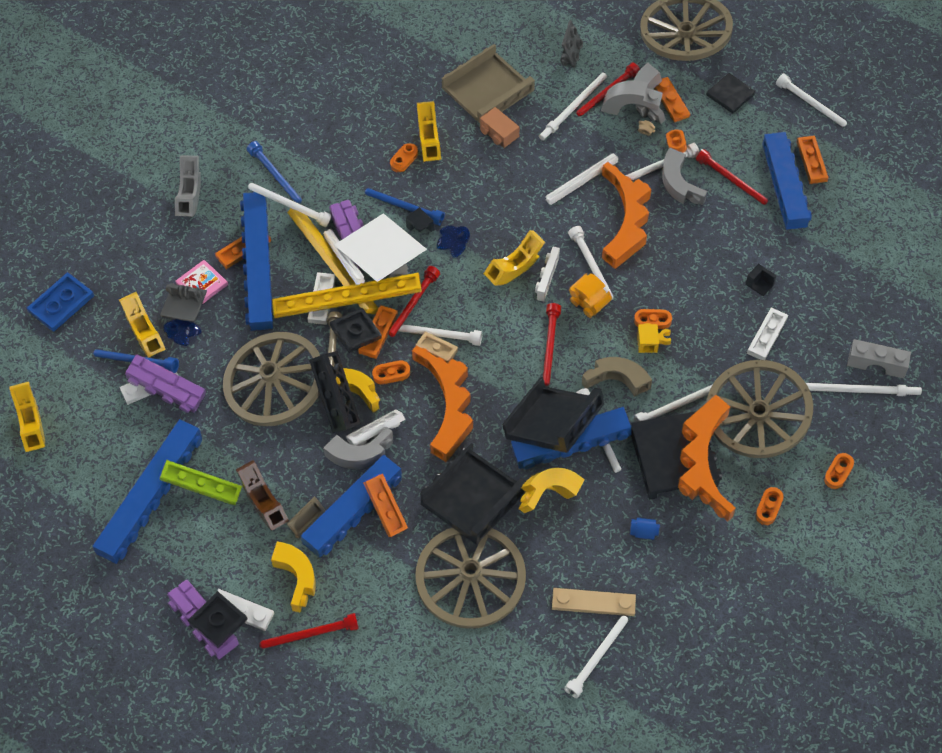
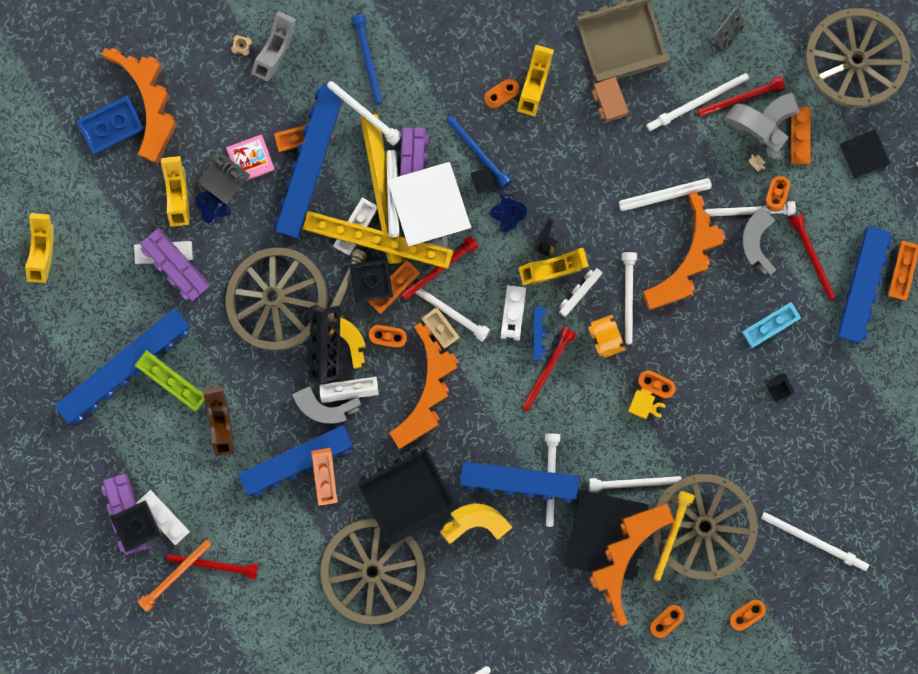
camera: 25 degrees right, 25 degrees up
(77, 252) = (158, 126): none -> orange arch
(157, 197) = (241, 40): none -> tan plate
(170, 363) = (186, 244): blue piece -> none
(258, 690) = (147, 601): none -> orange piece
(295, 561) = (228, 503): yellow arch -> none
(306, 517) = (251, 453): dark tan tile -> none
(496, 312) = (513, 312): none -> white plate
(499, 233) = (545, 243): none -> black fence
(527, 318) = (538, 334): none -> blue plate
(552, 417) = (510, 455): black panel -> none
(593, 602) = (468, 643): tan plate -> none
(618, 369) = (600, 426): dark tan arch -> none
(644, 528) = (544, 595): blue brick -> none
(726, 238) = (771, 325): none -> medium azure plate
(730, 388) = (684, 500): none -> yellow piece
(767, 334) = (756, 447): white plate -> none
(865, 354) = (845, 519): light grey arch -> none

